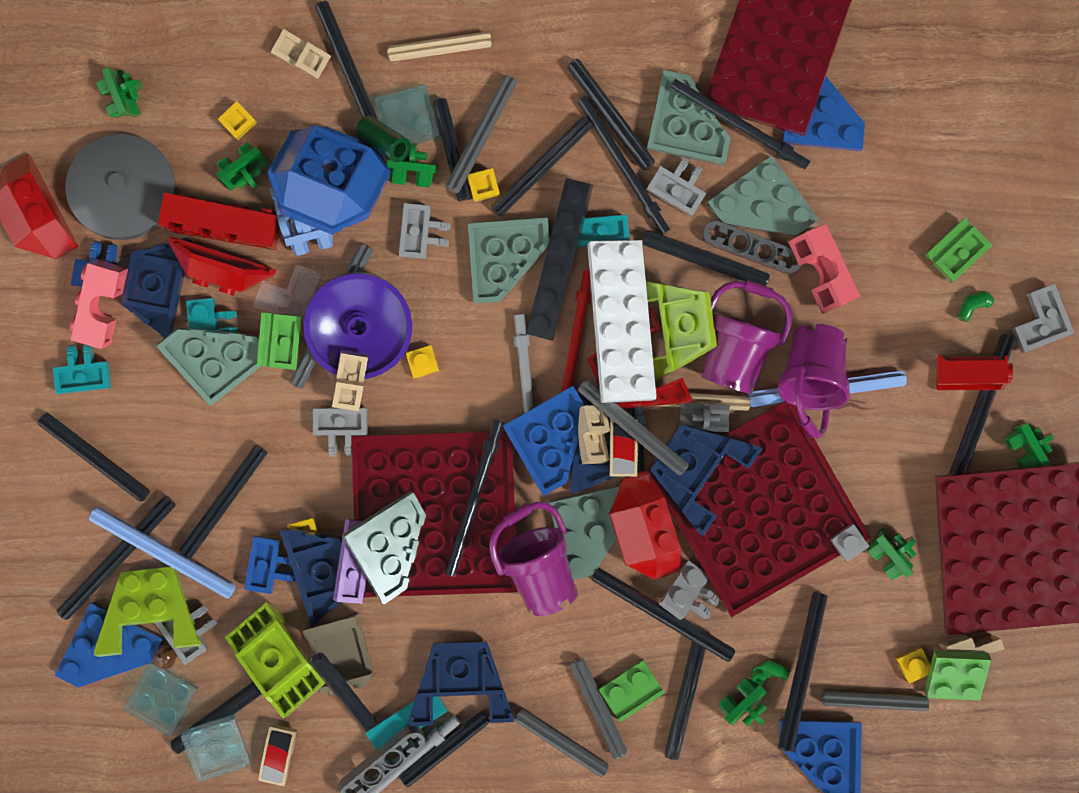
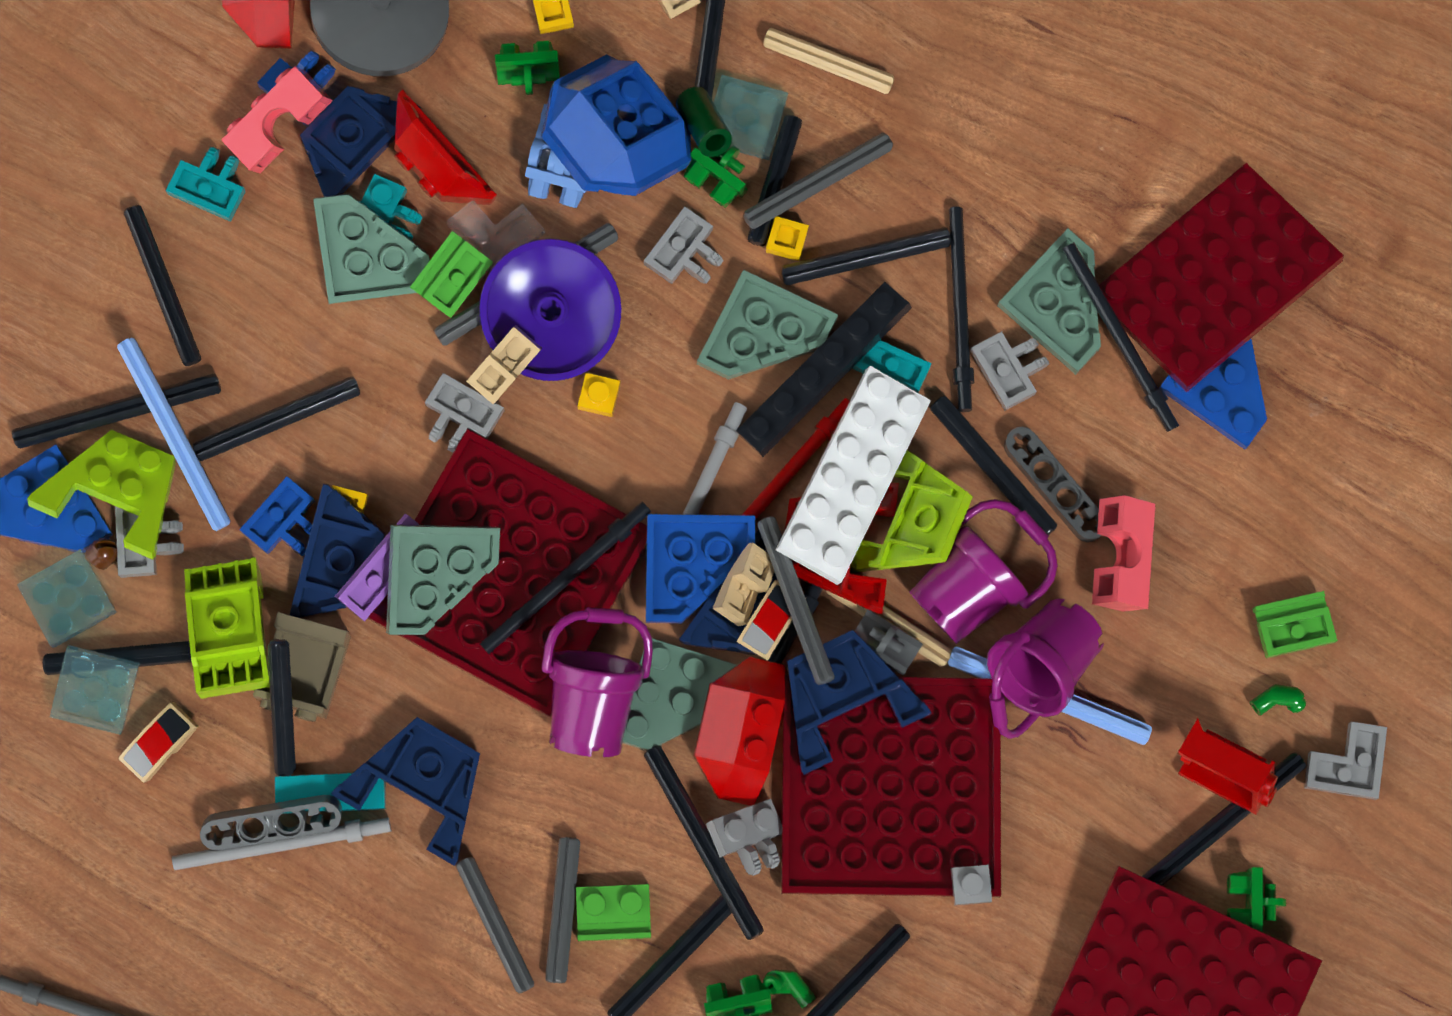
camera: 25 degrees right, 10 degrees down
(219, 222) = (466, 108): red wedge -> none
(445, 749) = (354, 851): black axle -> none
(611, 114) = (979, 244): black axle -> none
(764, 202) = (1098, 441): sand green plate -> none
(900, 563) = (1019, 948): green hips -> none

